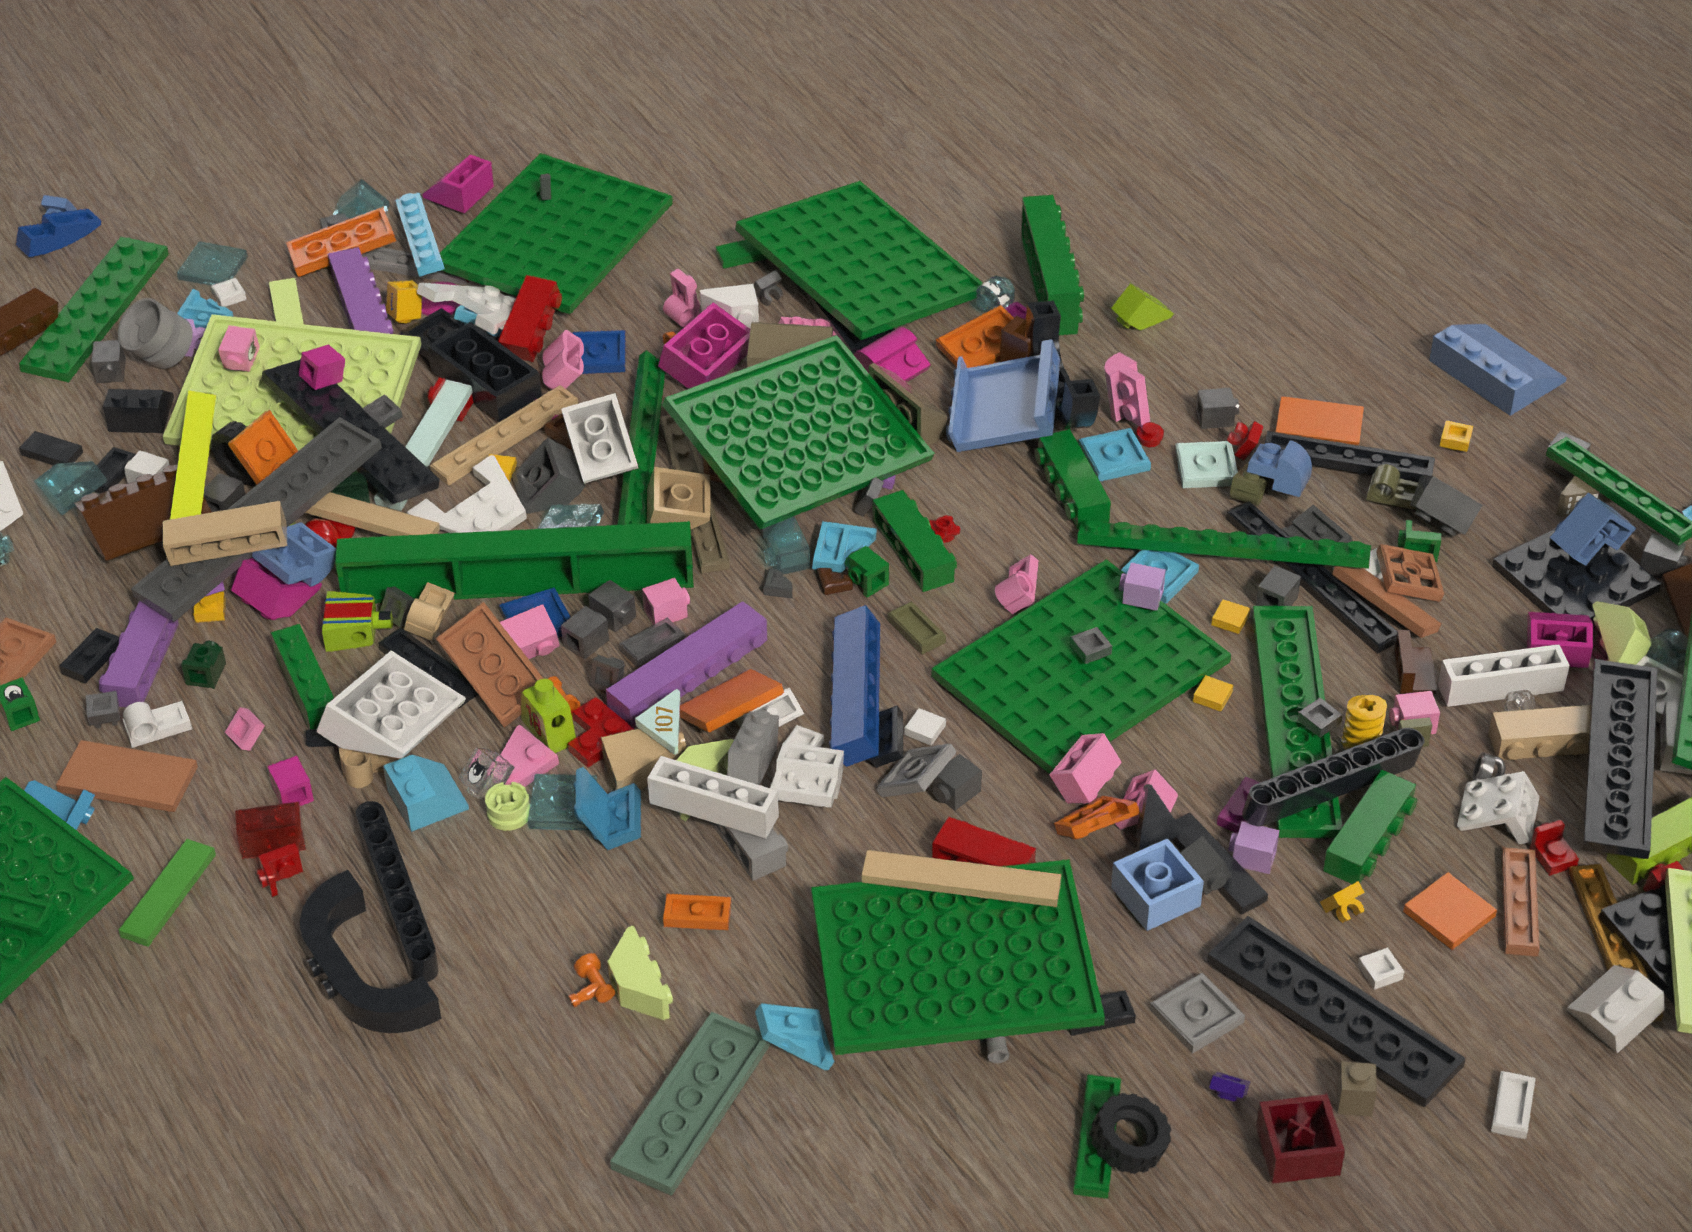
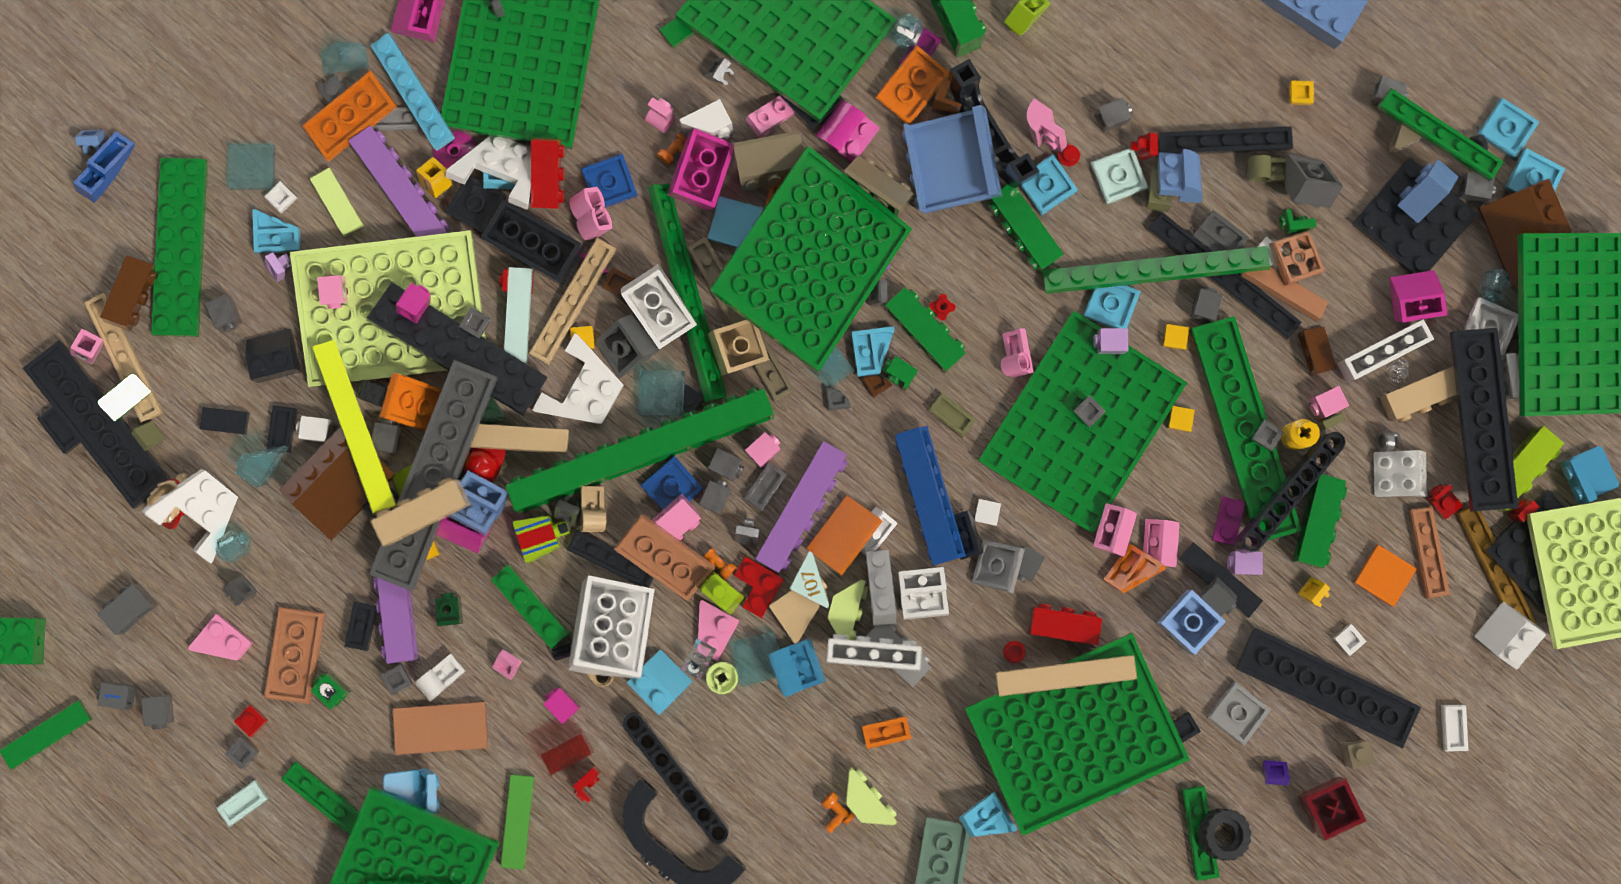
camera: 25 degrees left, 40 degrees up
(155, 333) = (253, 285): light grey wheel -> none
(805, 737) = (906, 553): white tile -> none
(1155, 821) = (1176, 574): black tile -> none
(1320, 420) = (1193, 104): orange tile -> none
(1622, 633) = (1460, 283): yellowish green slope -> none

